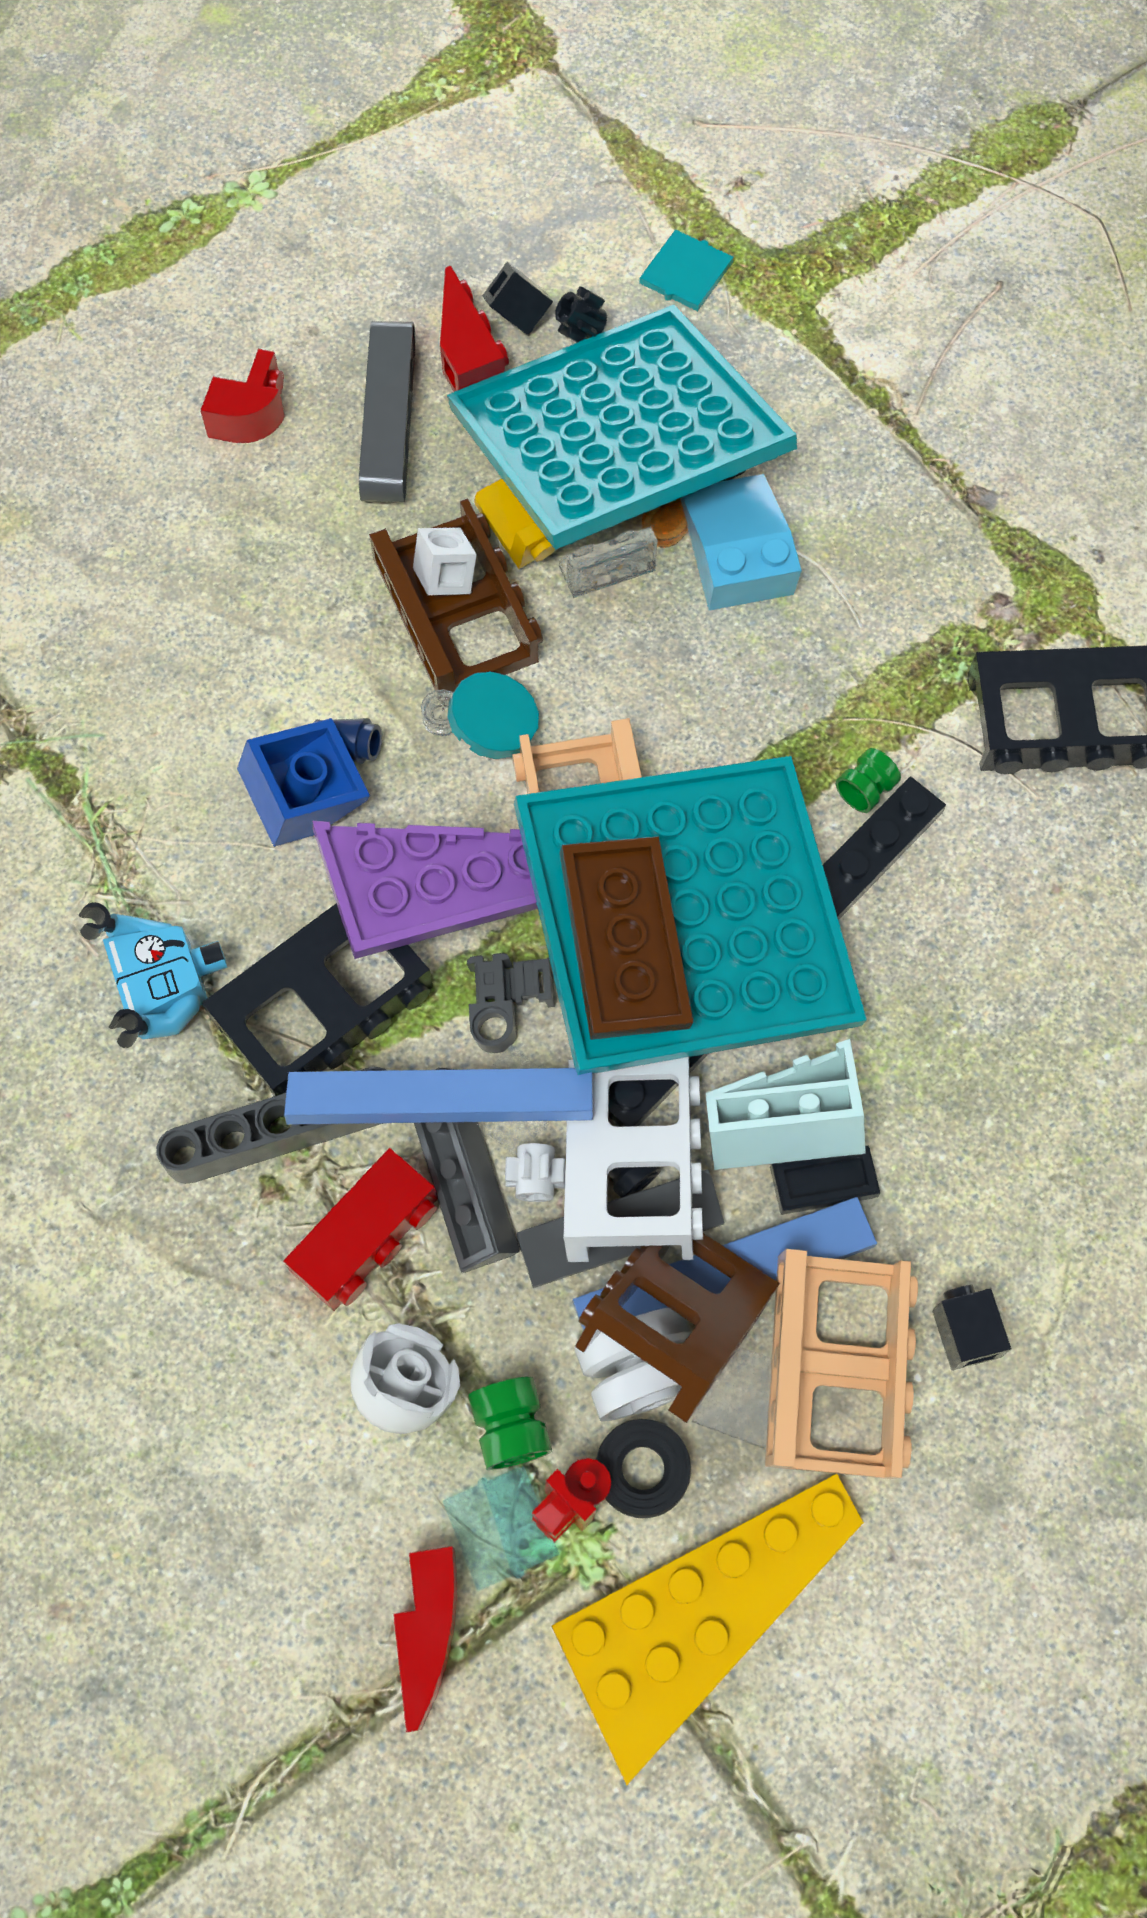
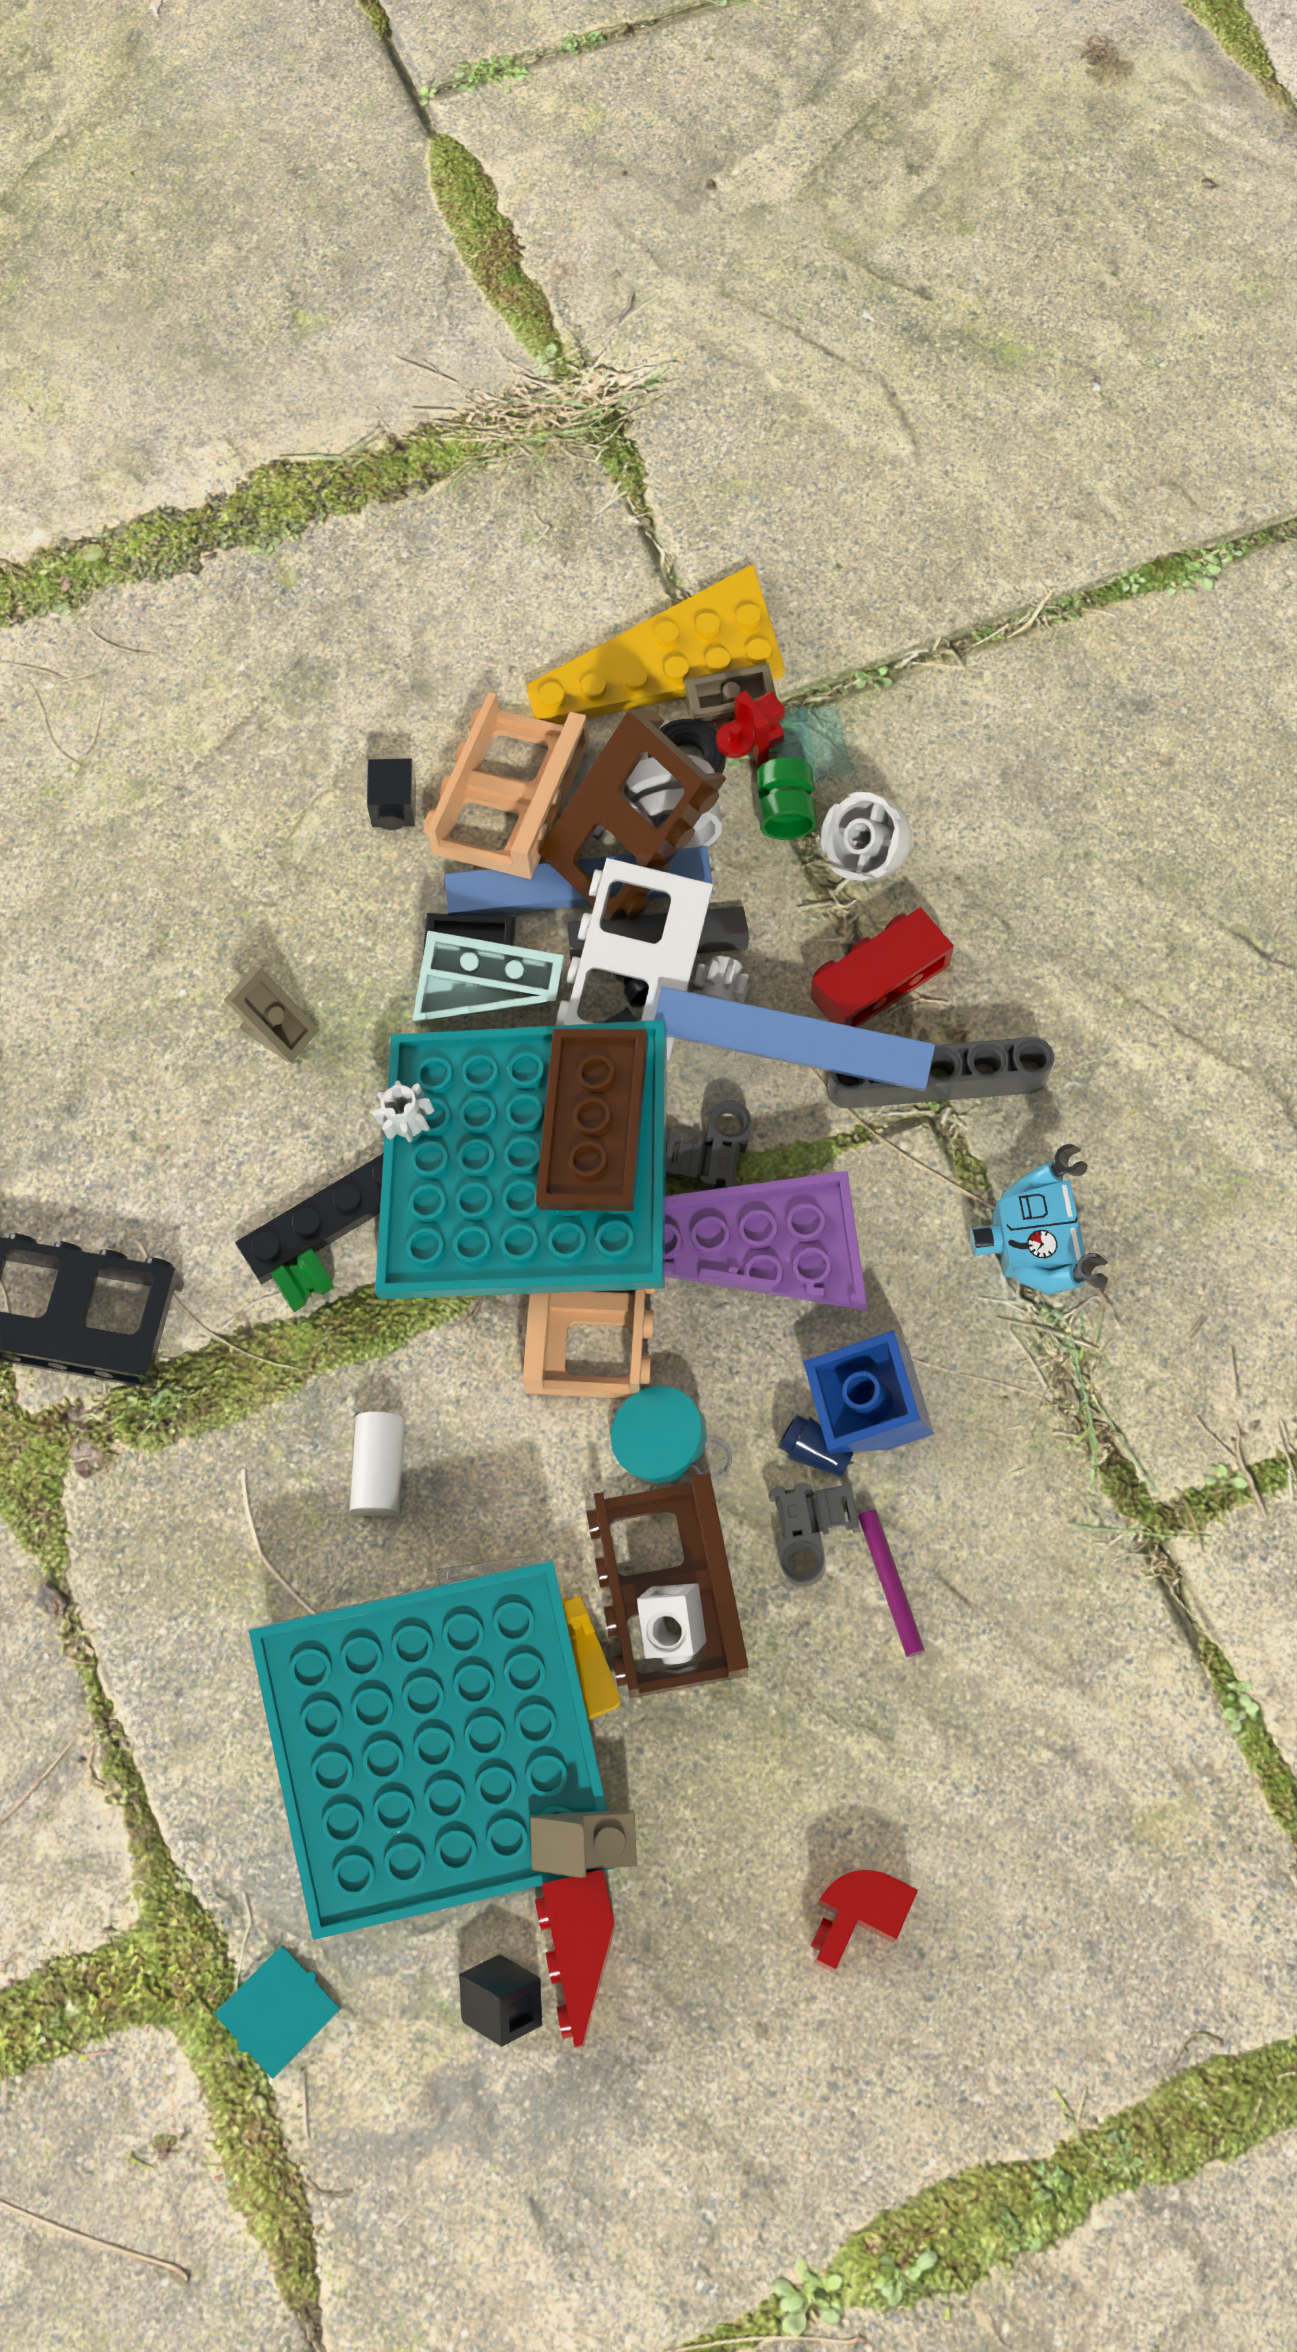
camera: 165 degrees left, 0 degrees up
(260, 649) = (891, 1583): none -> magenta bar
(300, 968) = (903, 1204): black window -> none
(341, 679) = (811, 1517): none -> dark grey piece
(387, 412) = (693, 1865): dark grey beam -> none
(426, 1632) = (880, 681): red slope -> none
(467, 1192) = (783, 986): dark grey slope -> none
(486, 390) = (583, 1841): none -> dark tan slope
(581, 315) = (430, 1945): black gear -> none
(608, 1562) = (713, 695): none -> dark tan brick
(741, 542) = (339, 1556): medium azure slope -> none
(741, 644) = (377, 1464): none -> white brick
(822, 918) = (400, 1099): none -> white gear
(1001, 1030) = (271, 1015): none -> dark tan slope

